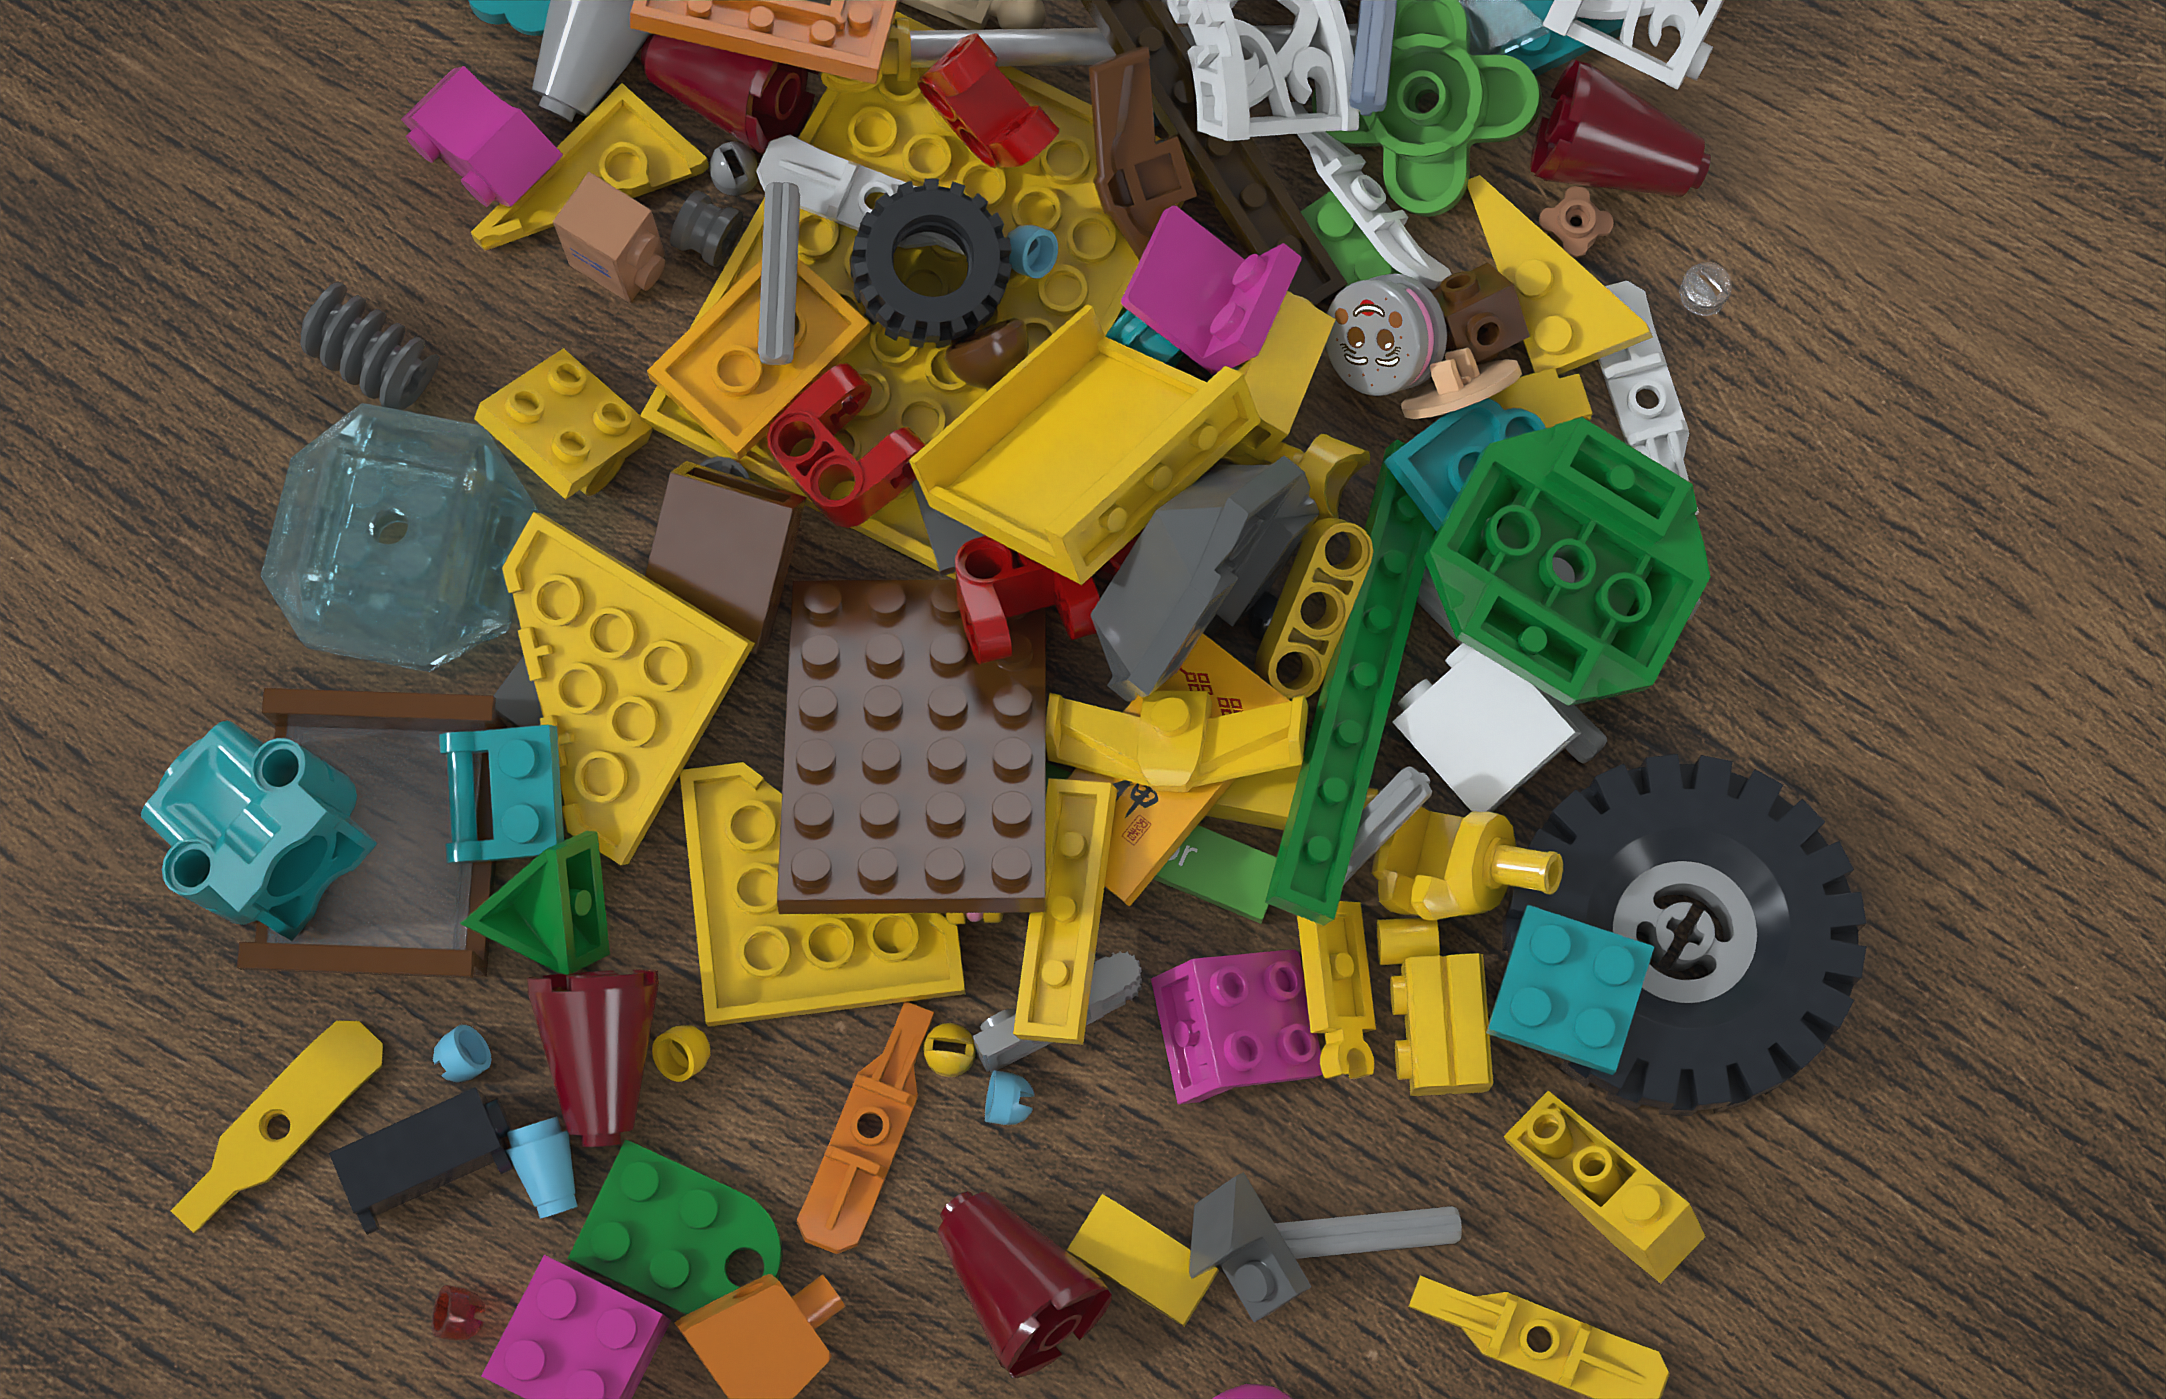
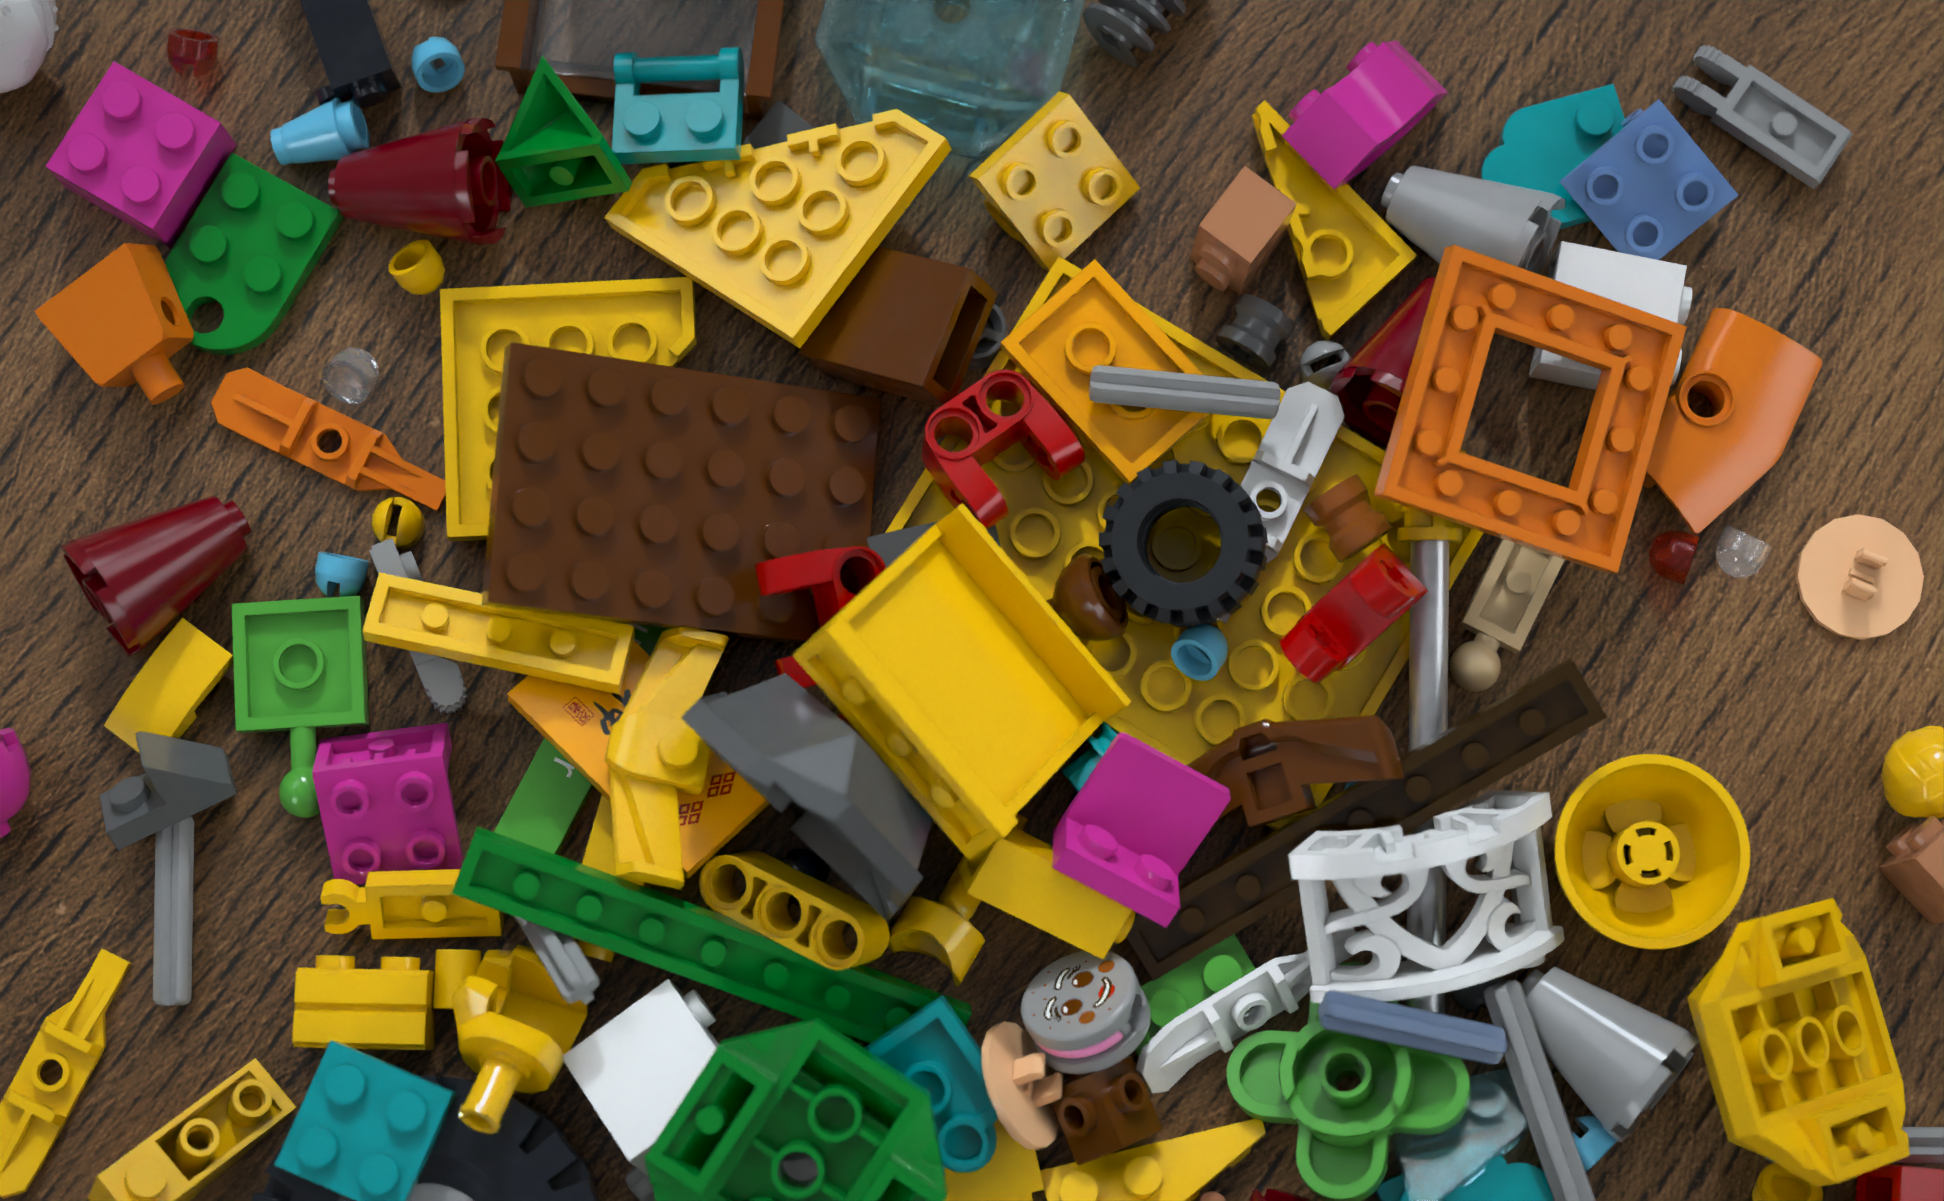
camera: 90 degrees right, 5 degrees up
(800, 1107) = (351, 375): none -> clear hinge
(891, 122) = (1348, 518): none -> dark orange wheel
(1112, 1127) = (300, 672): none -> bright green plate

